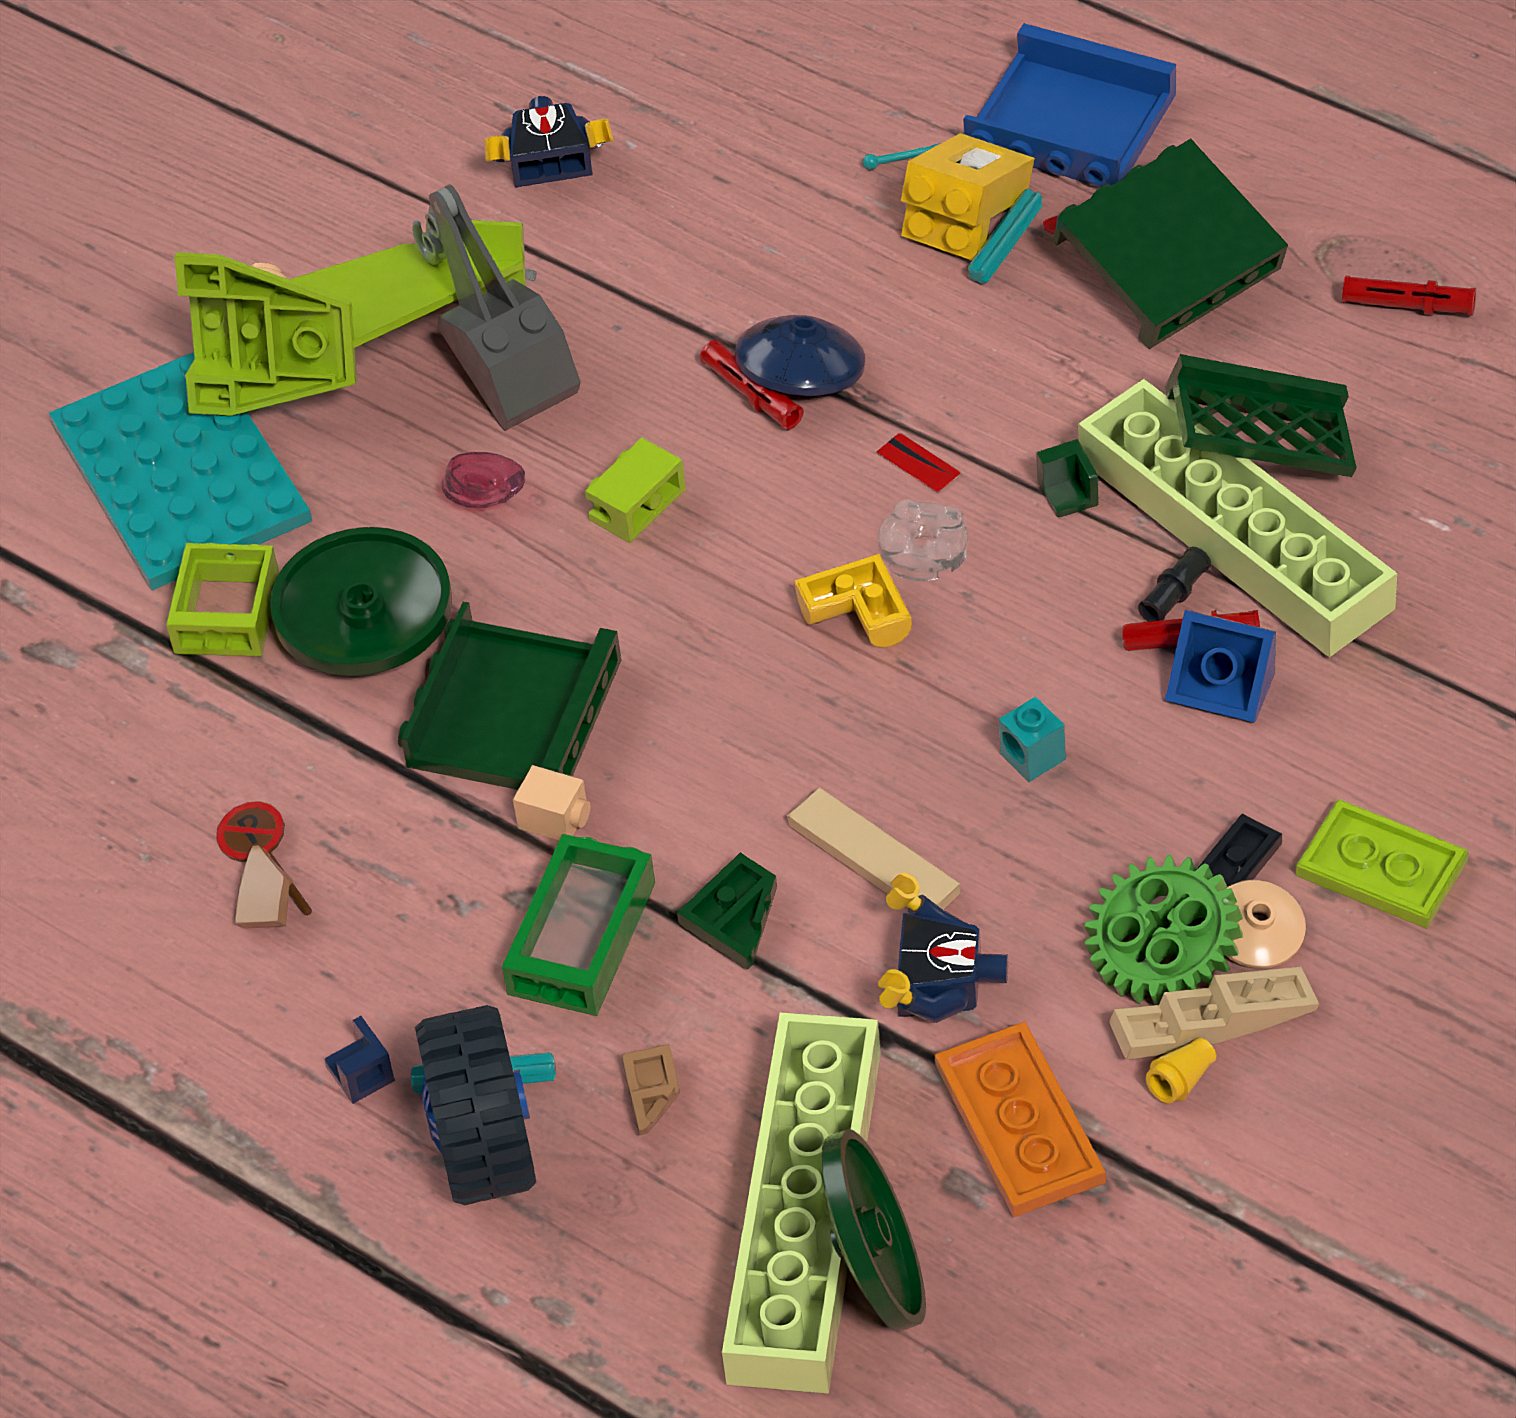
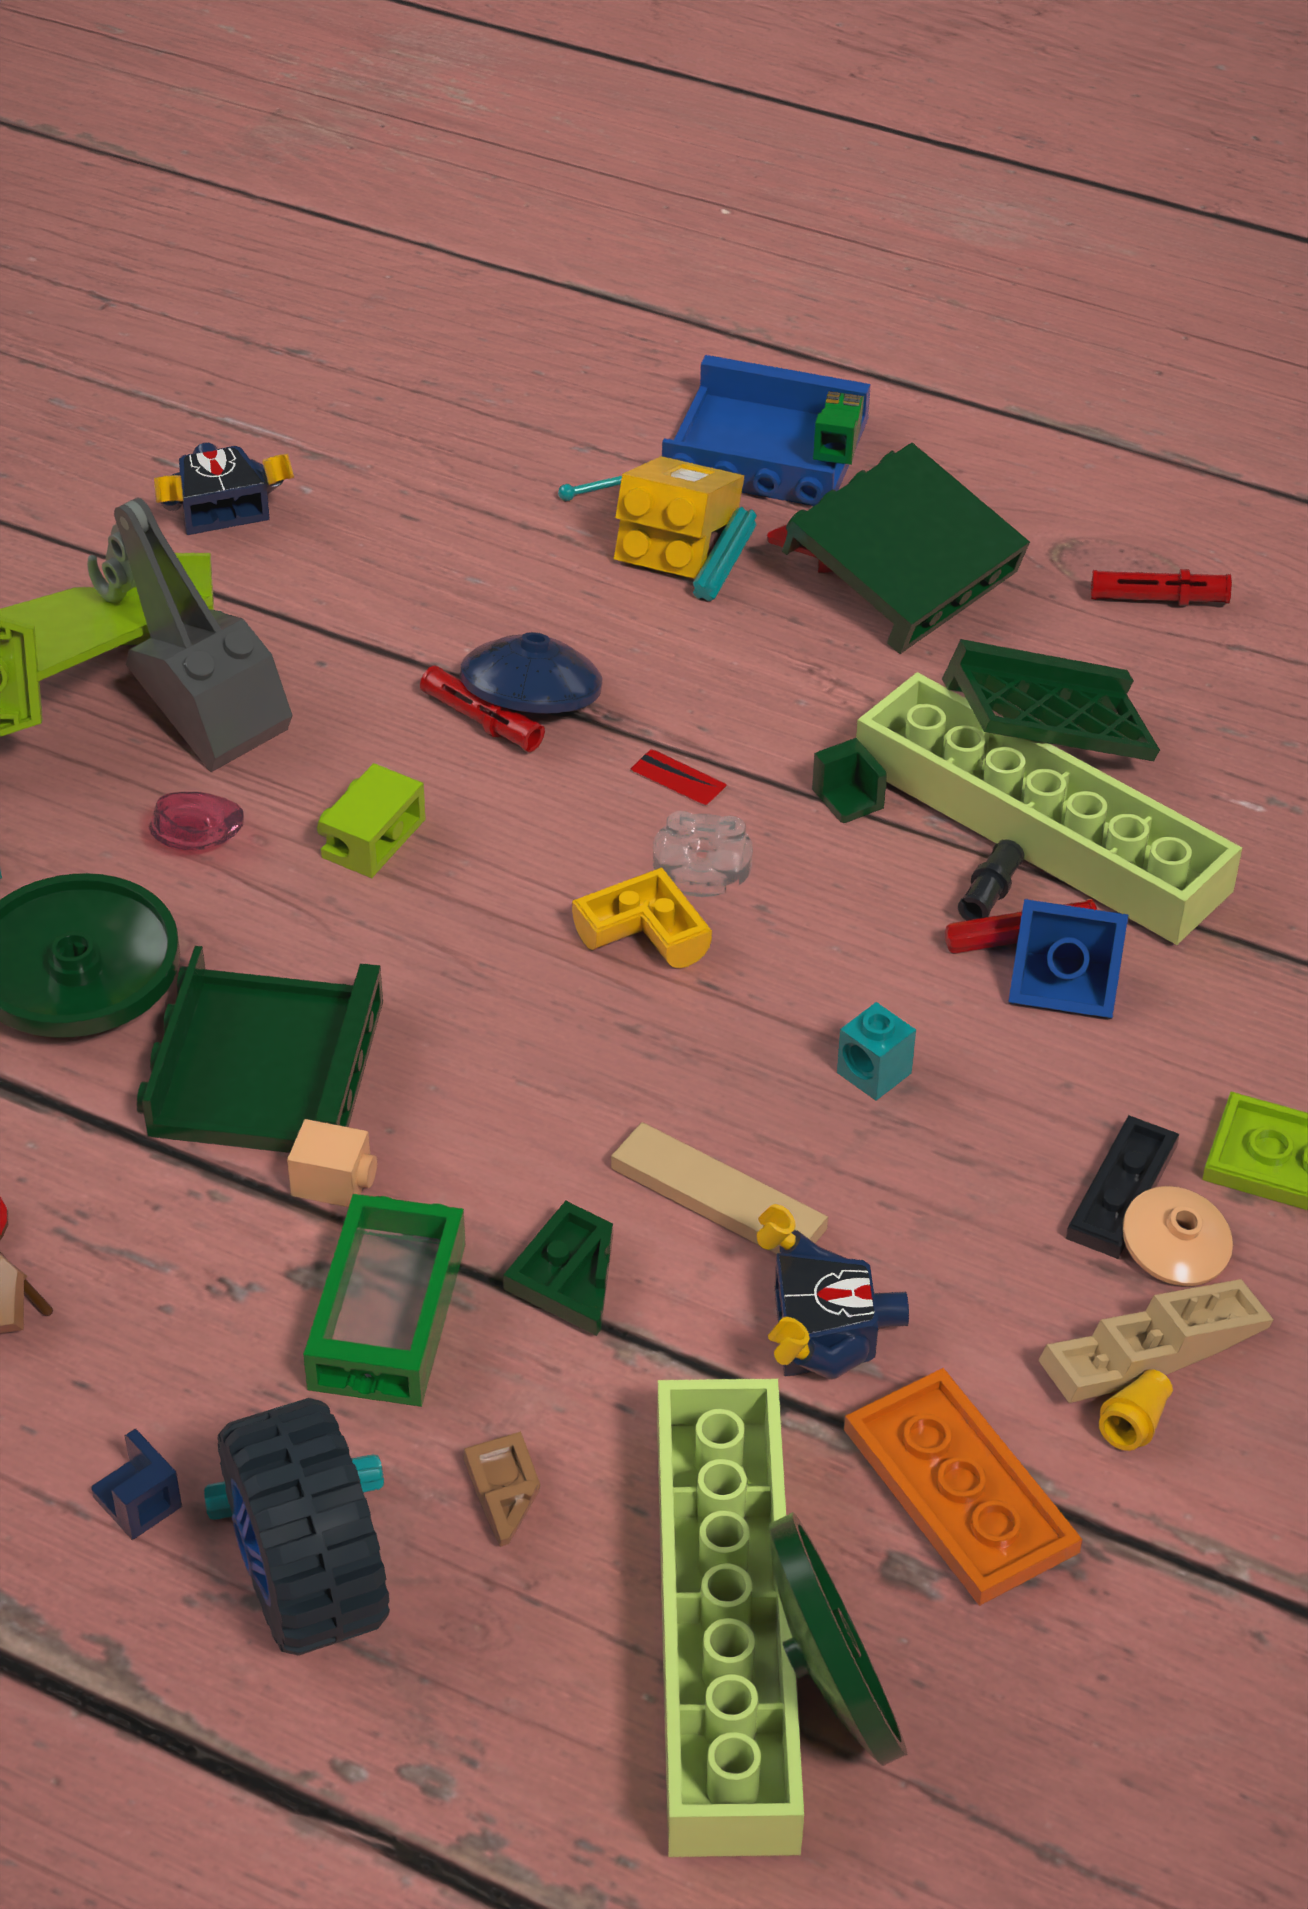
camera: 15 degrees left, 5 degrees down
(1139, 103) = (838, 423): none -> green leg
(1163, 929) = (1032, 1232): bright green gear -> none

